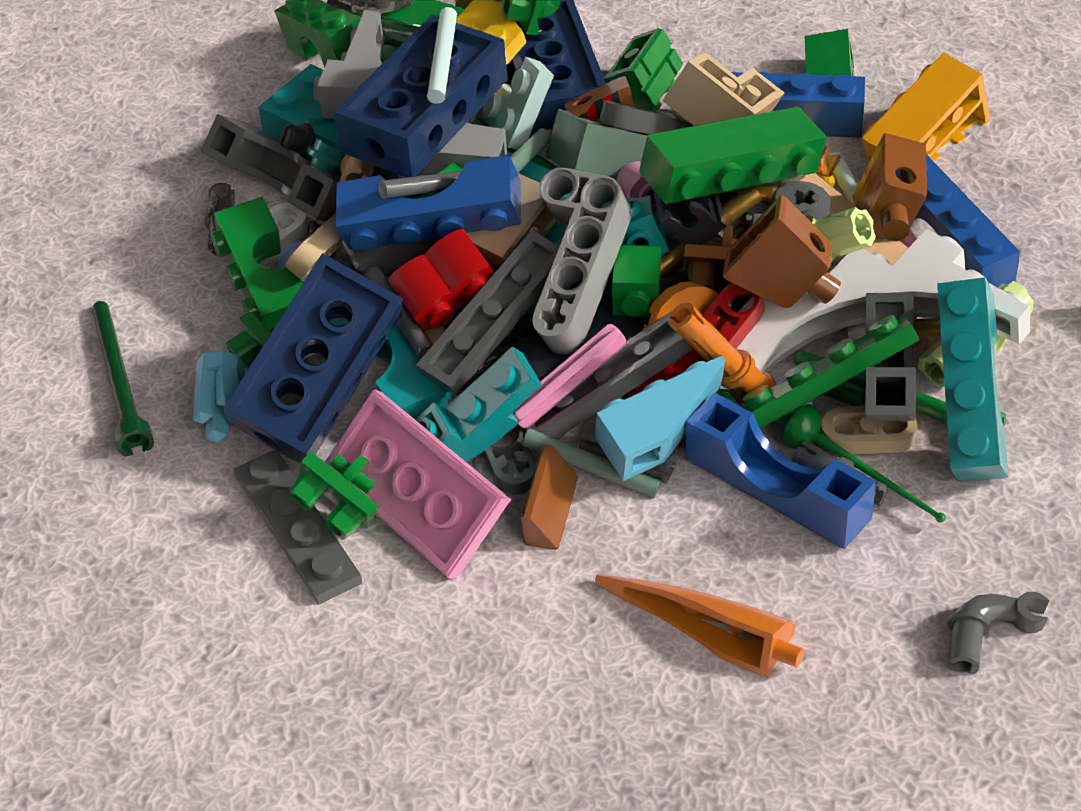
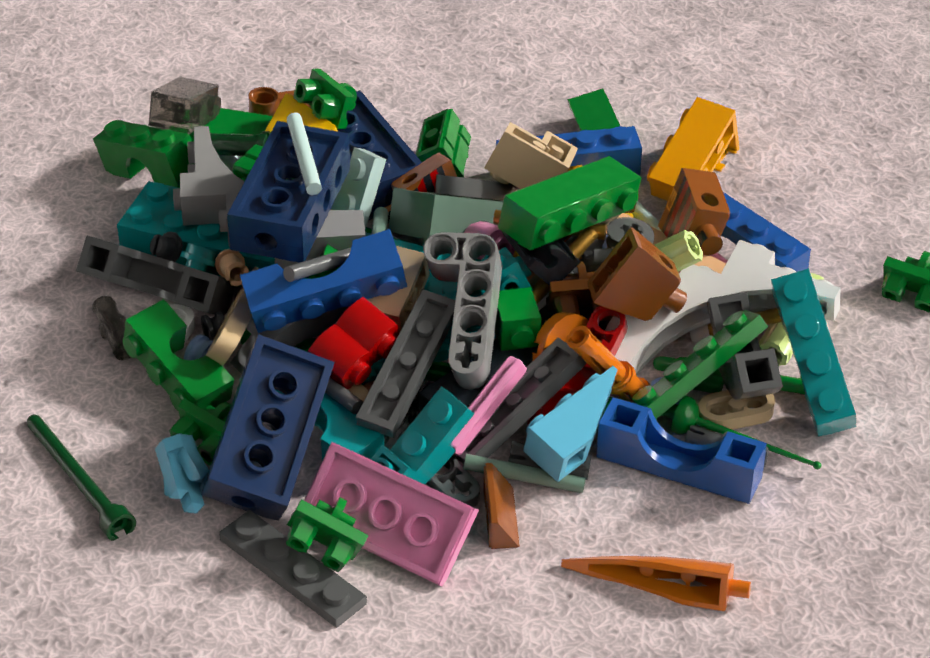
camera: 20 degrees left, 5 degrees down
(973, 620) = (869, 538): dark grey piece -> none

